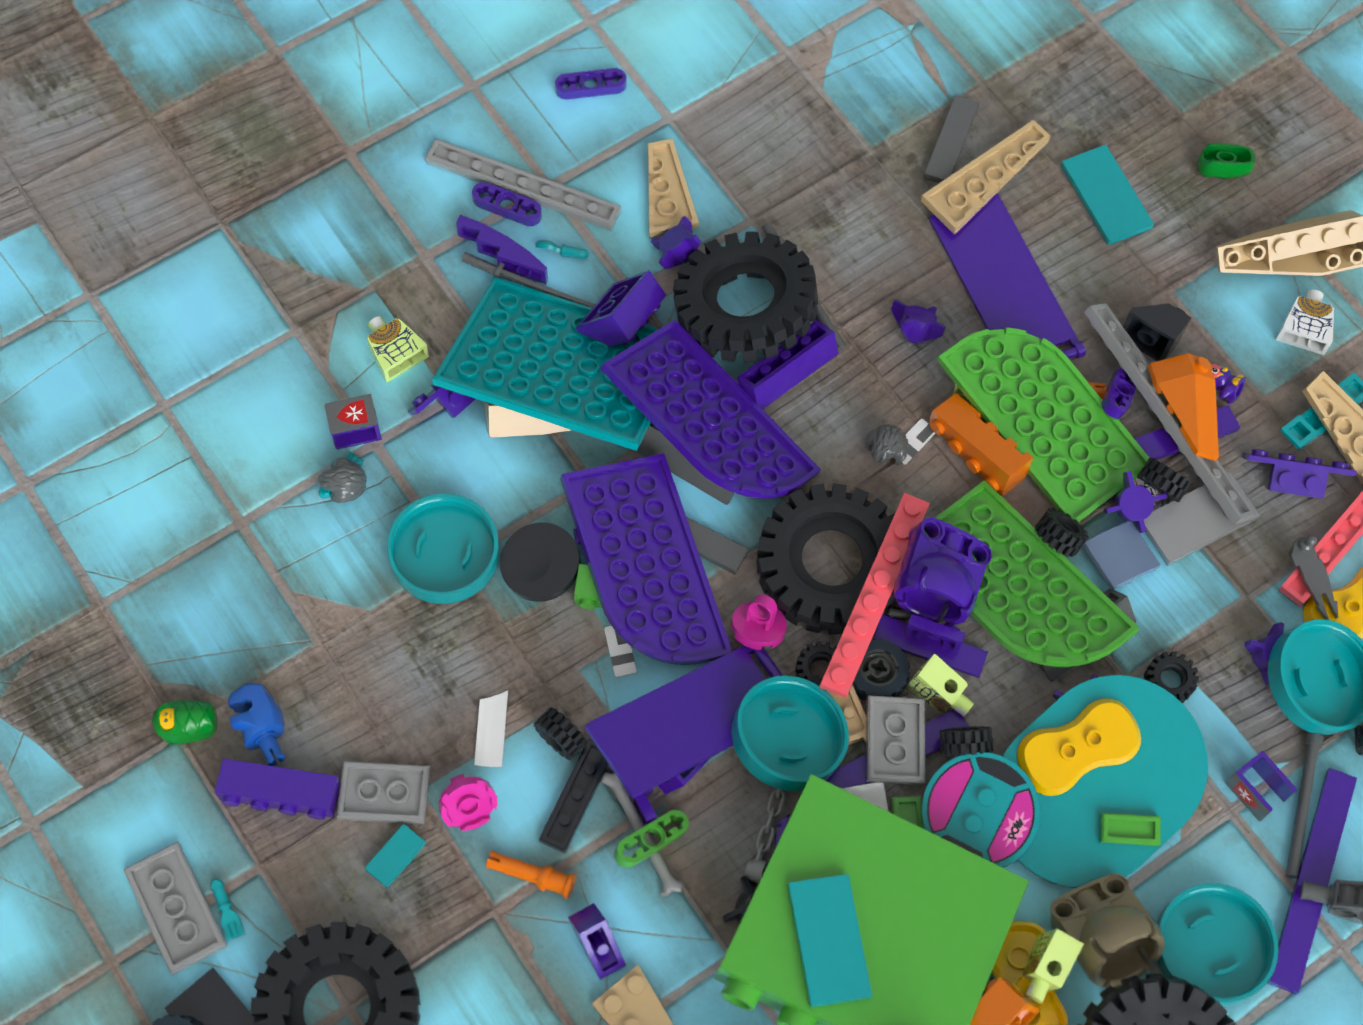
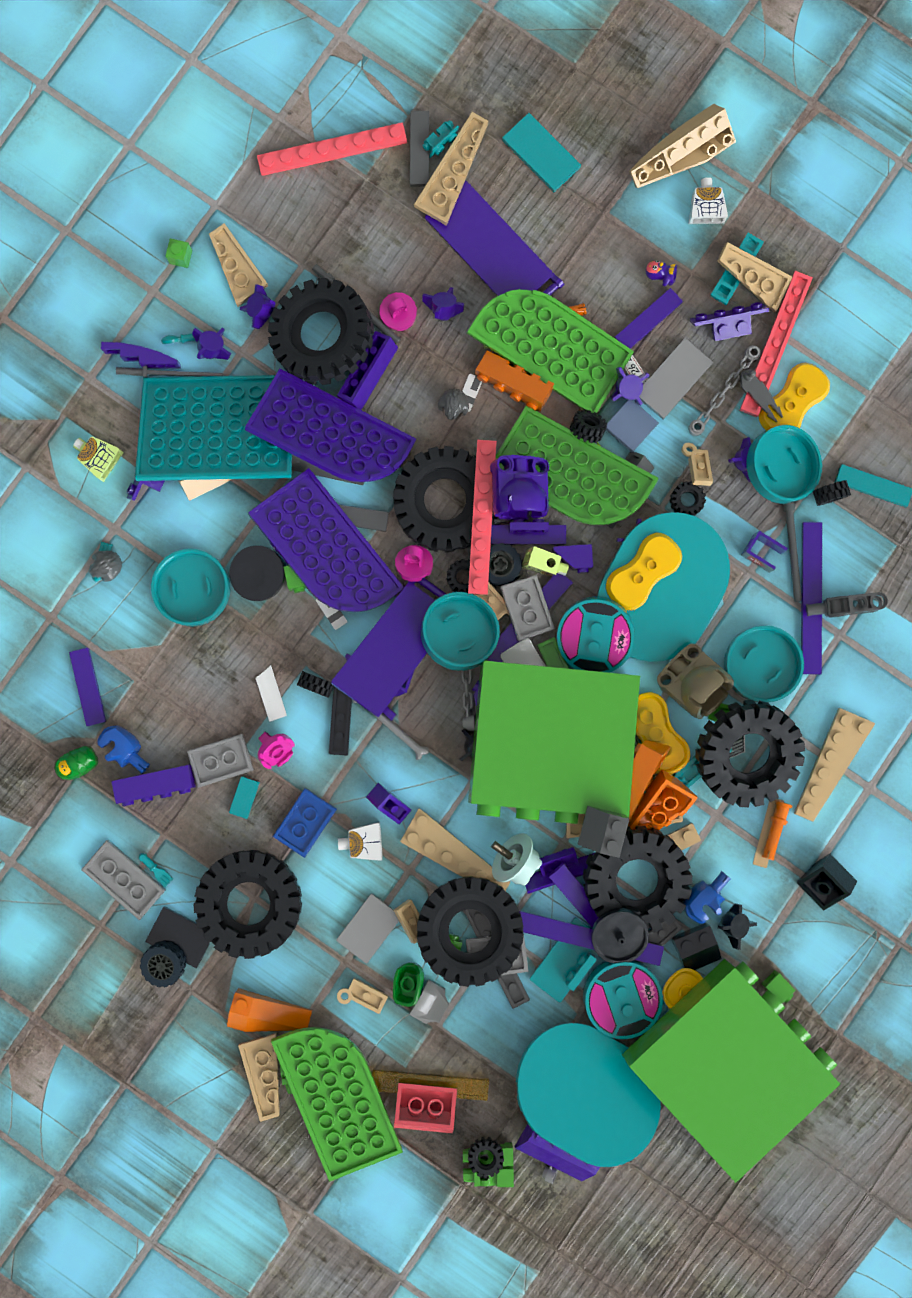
camera: 20 degrees left, 20 degrees up
(247, 628) = (87, 687): none -> dark purple tile
(353, 421) = (93, 521): piece -> none
(465, 924) = (304, 822): none -> blue tile
(513, 213) = (134, 324): dark purple beam -> none
(539, 982) = (363, 842): none -> white torso
(544, 191) = (133, 297): light grey tile -> none
(544, 877) = (342, 777): orange pin -> none
(596, 75) = (149, 206): dark purple beam -> none
(596, 266) = (210, 344): none -> dark purple piece
(601, 152) = (178, 253): none -> bright green brick
(623, 310) = (241, 373): dark purple slope -> none
(646, 850) = (401, 714): bright green beam -> none
(829, 940) = (531, 762): teal tile -> none
(840, 105) = (332, 149): none -> coral plate
(854, 312) = (398, 311): none -> dark pink tile
(966, 740) = (572, 594): black tyre -> none
(990, 697) = (576, 556): none -> dark purple slope
(992, 134) = (435, 143): none -> teal hinge
(1050, 963) = (667, 719): yellowish green torso -> none
(1119, 392) = (596, 324): dark purple beam -> none
(1130, 829) = (691, 612): bright green tile -> none
(1135, 364) = (632, 310): light grey plate -> none
(1156, 329) = (606, 251): black slope -> none
(1164, 479) = (644, 363): black tyre -> none
(1191, 396) = (642, 290): orange wedge -> none
(1200, 638) = (699, 465): none -> tan hinge
(1225, 161) = (616, 95): green piece -> none
(1311, 527) = (750, 358): none -> light grey piece

